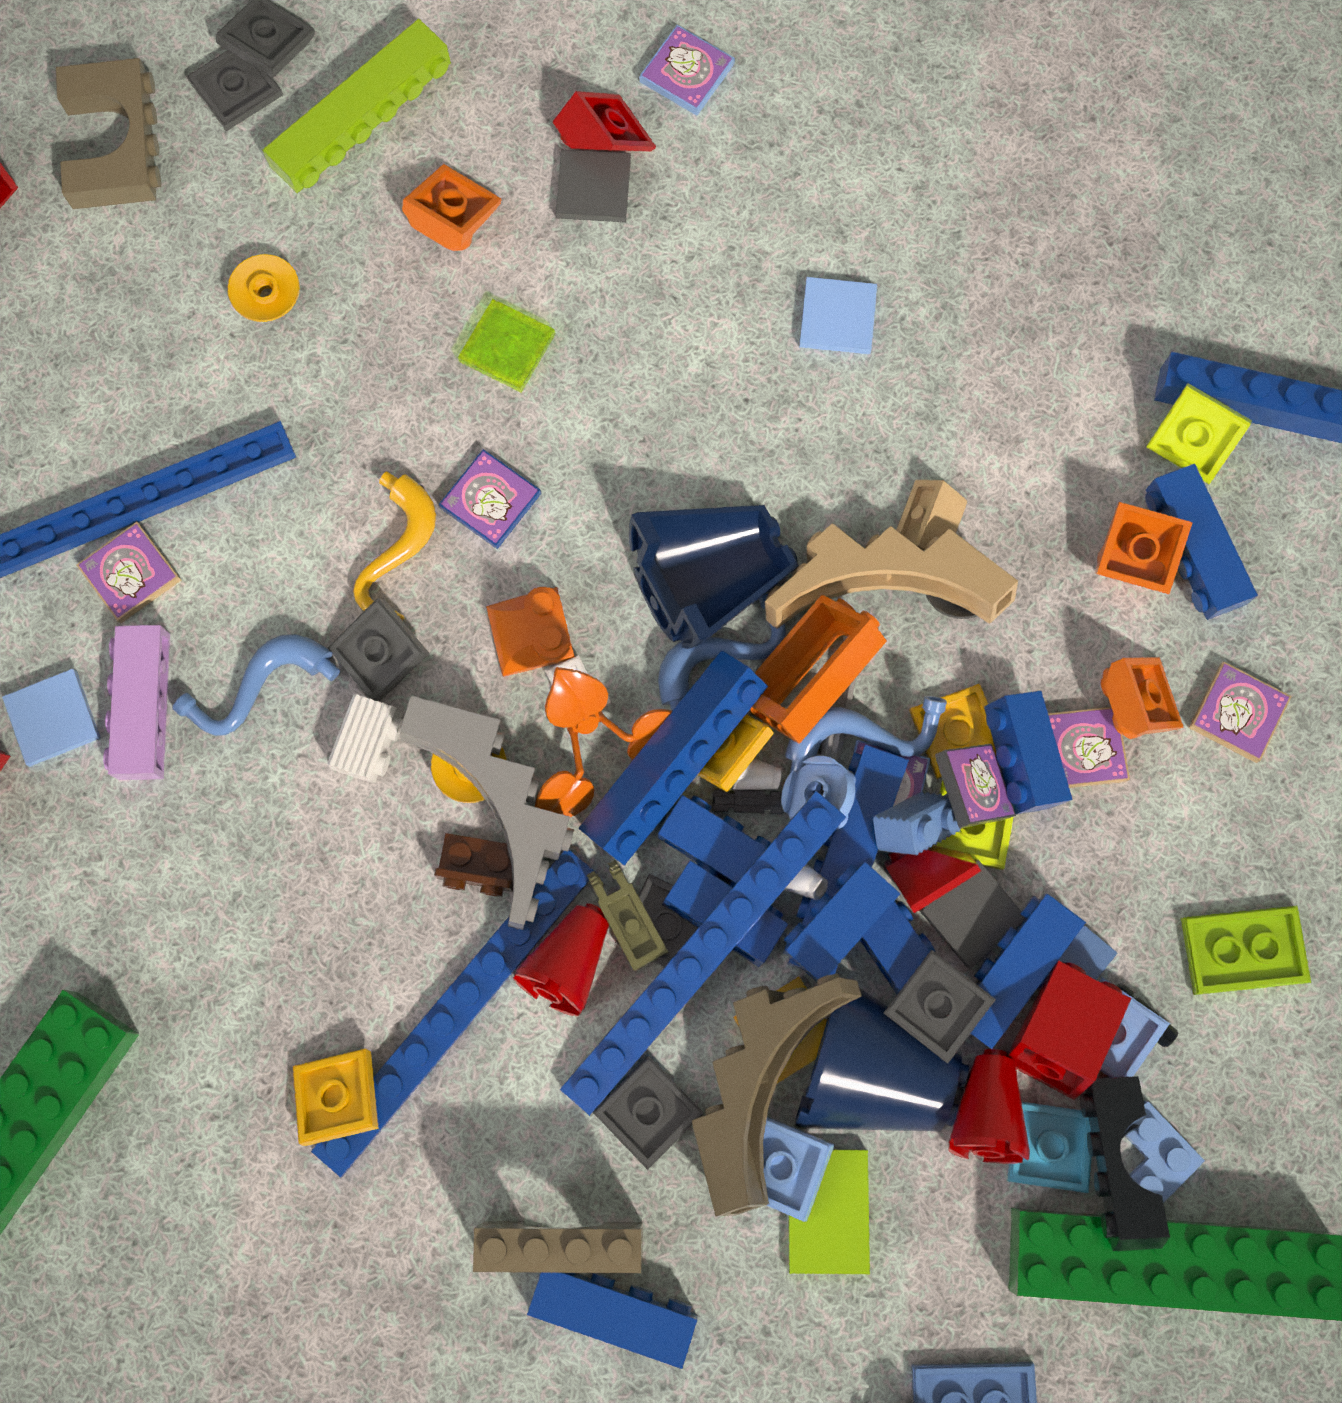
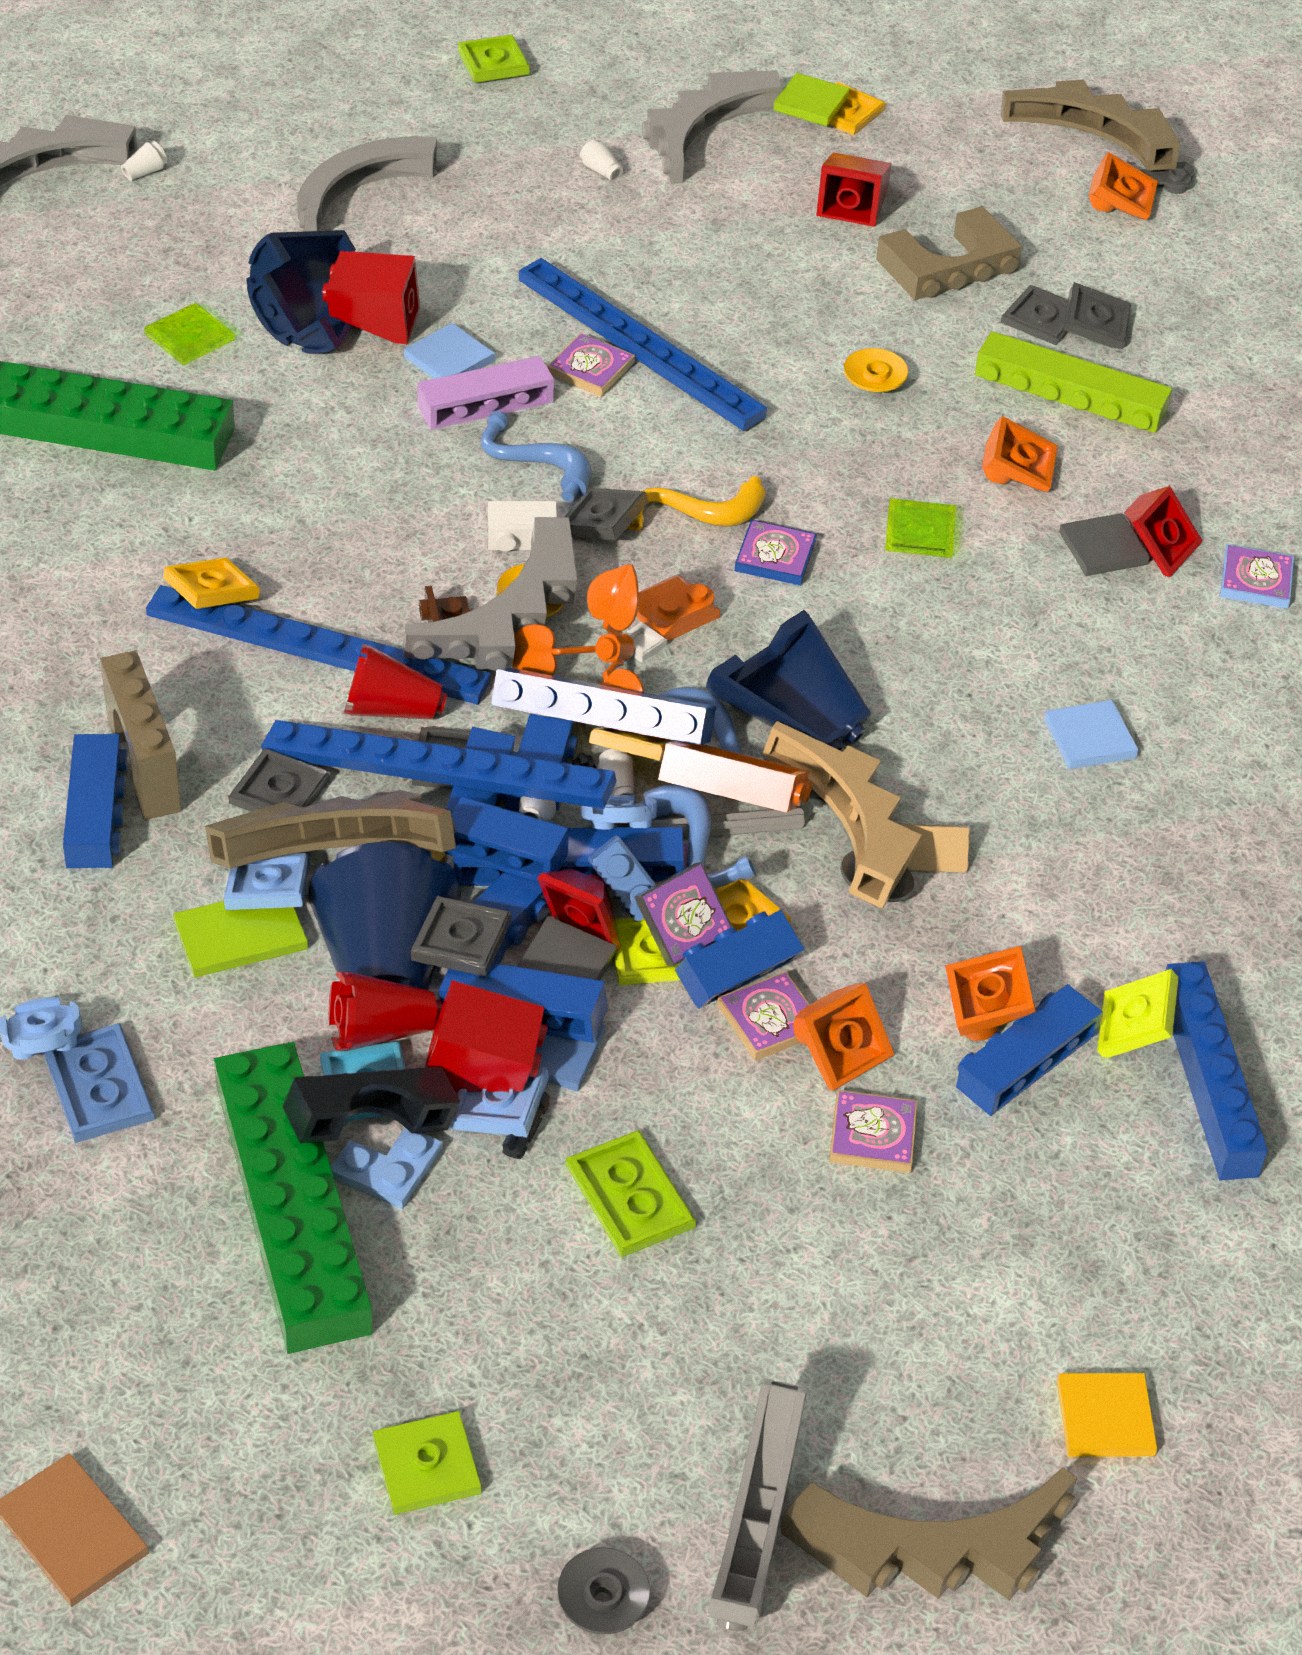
camera: 65 degrees right, 30 degrees down
(629, 920) = (447, 716): olive hinge -> none

